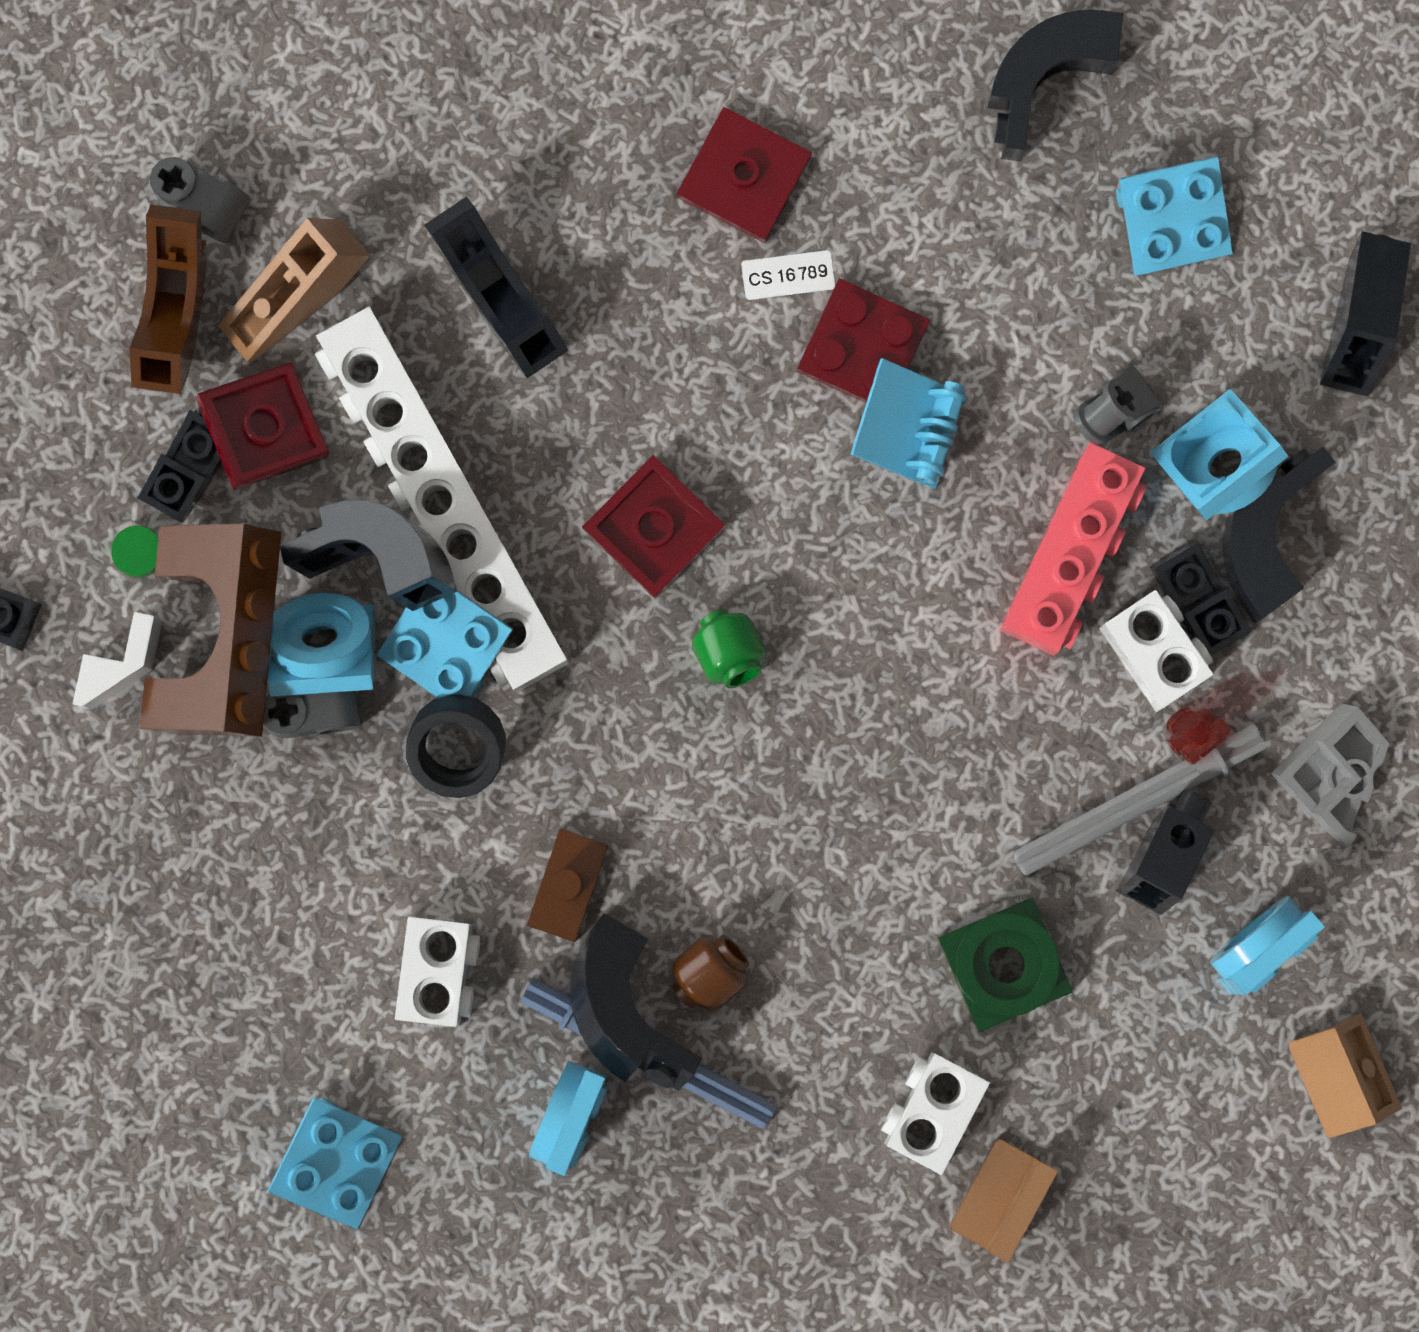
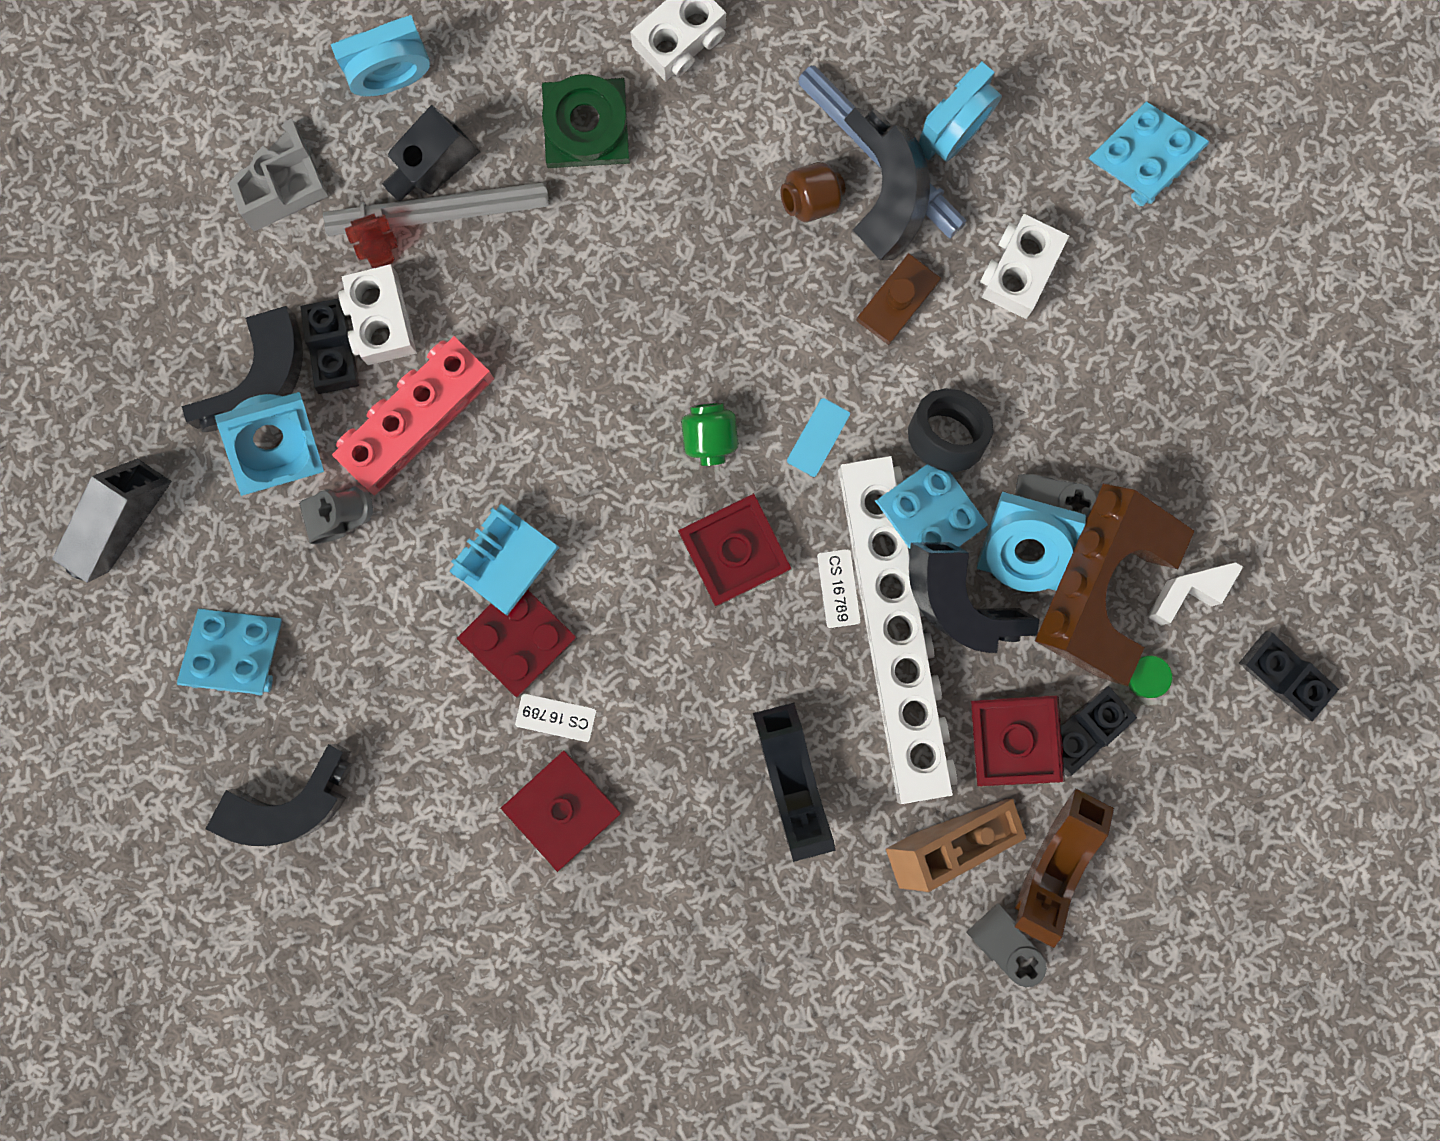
camera: 160 degrees left, 0 degrees up
(521, 530) = (838, 588): none -> white sticker
(604, 694) = (818, 437): none -> medium azure sticker

